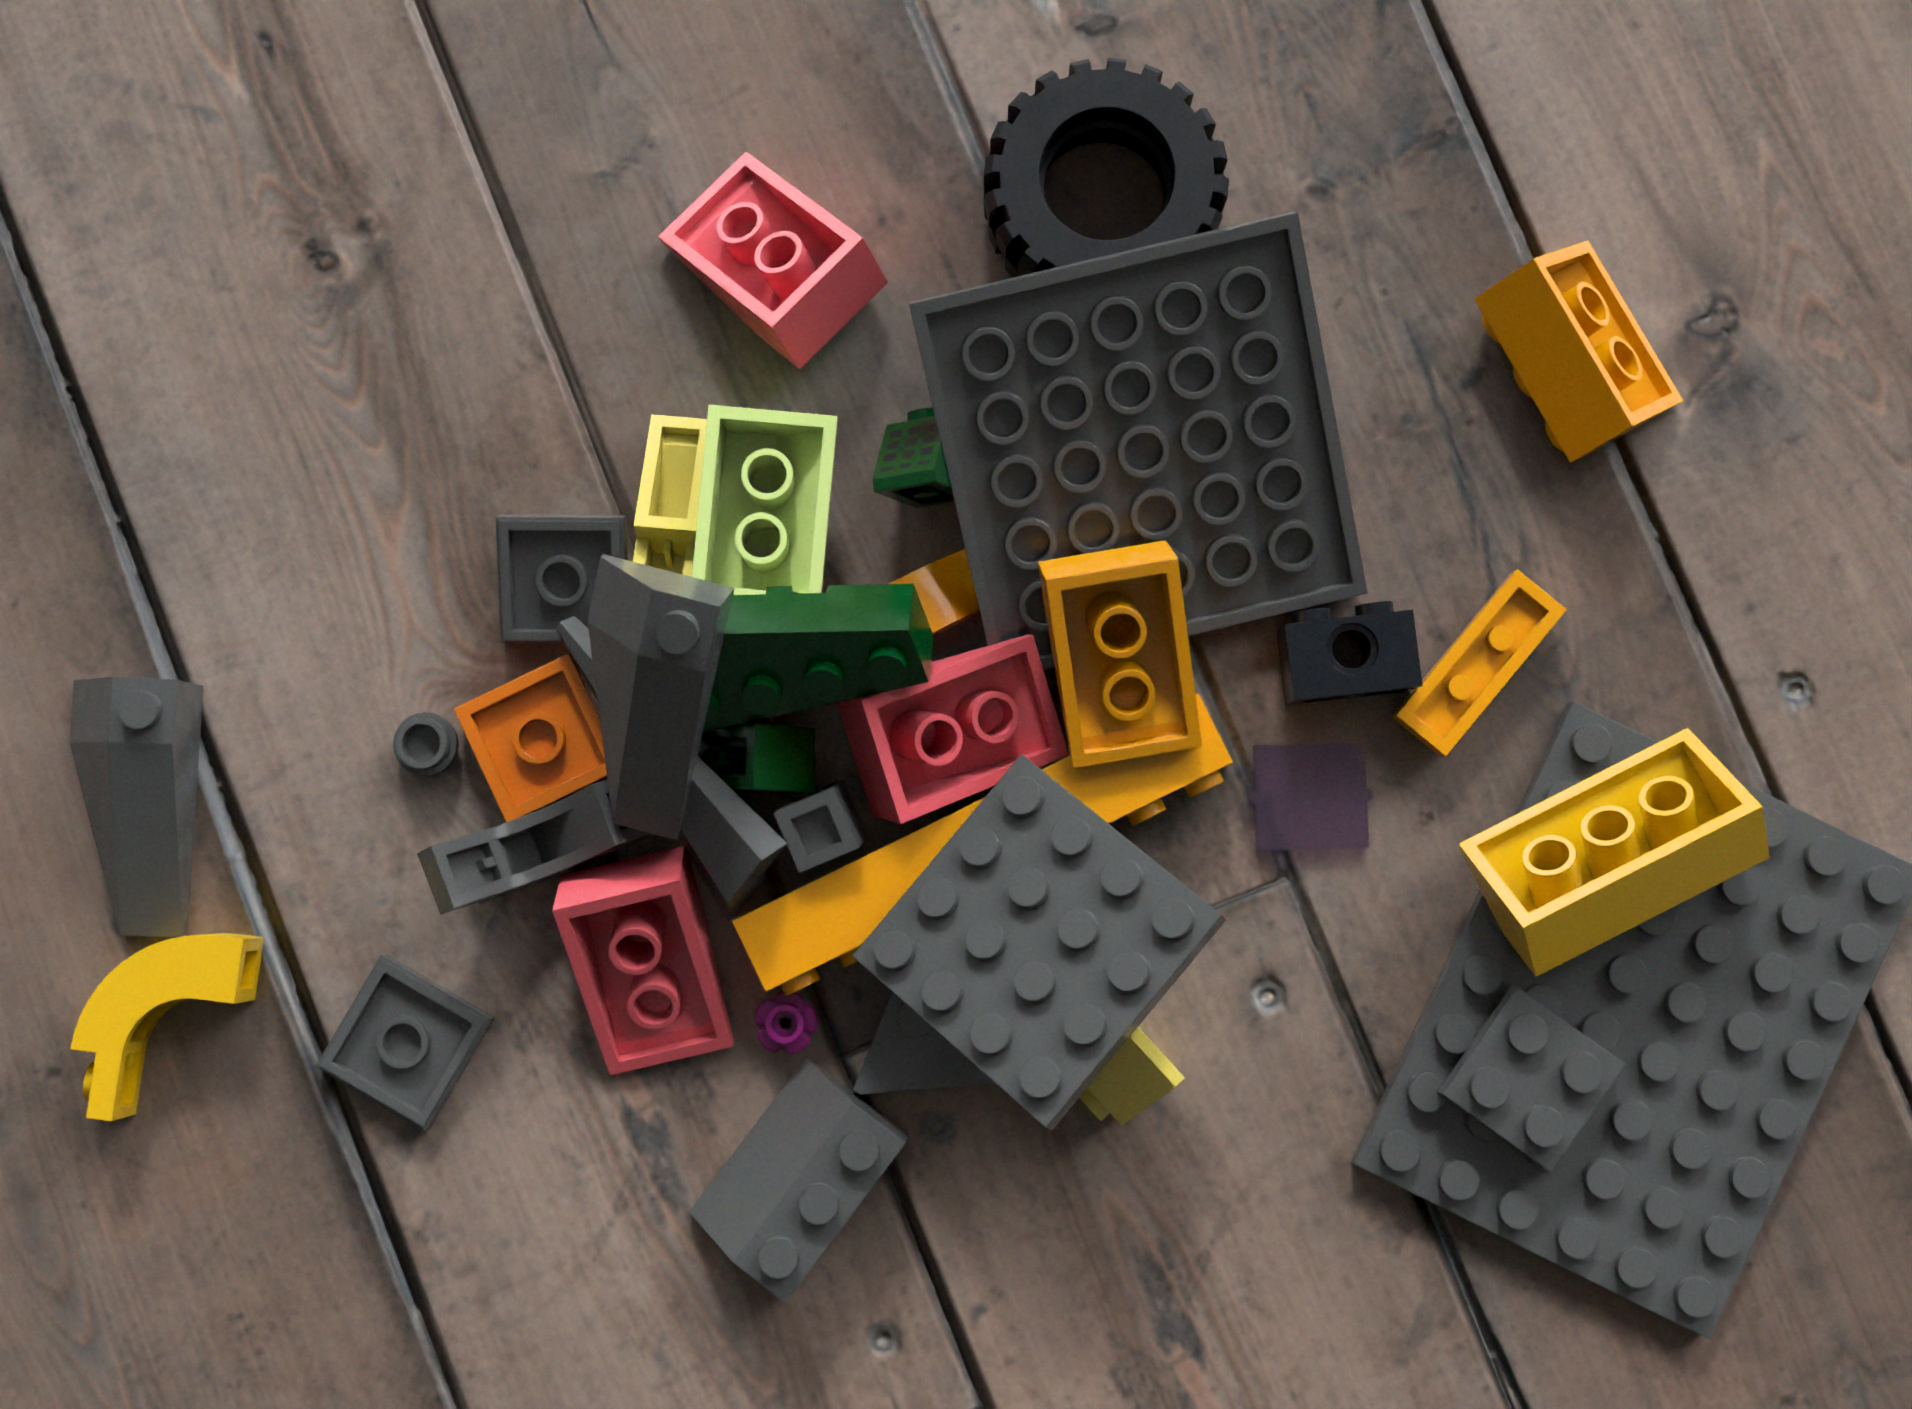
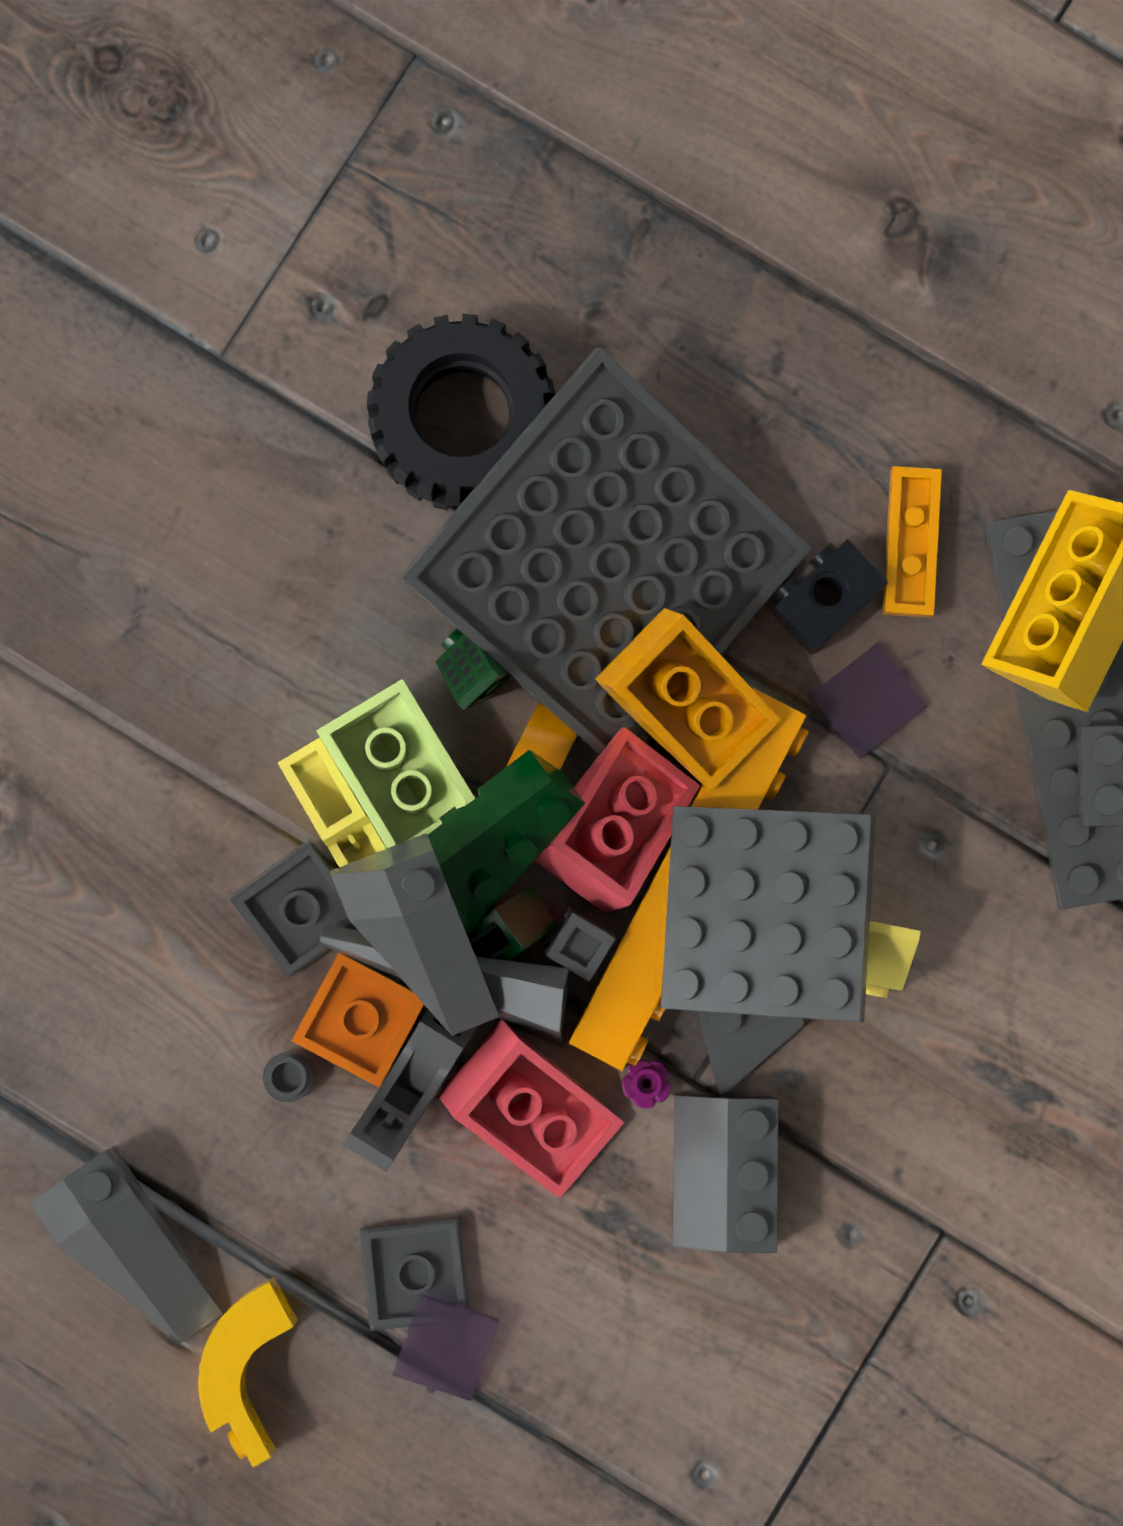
camera: 50 degrees left, 0 degrees up
(379, 1141) = (445, 1347): none -> clear purple piece
(775, 258) = (282, 606): coral slope -> none
(1576, 349) = (830, 300): light orange slope -> none

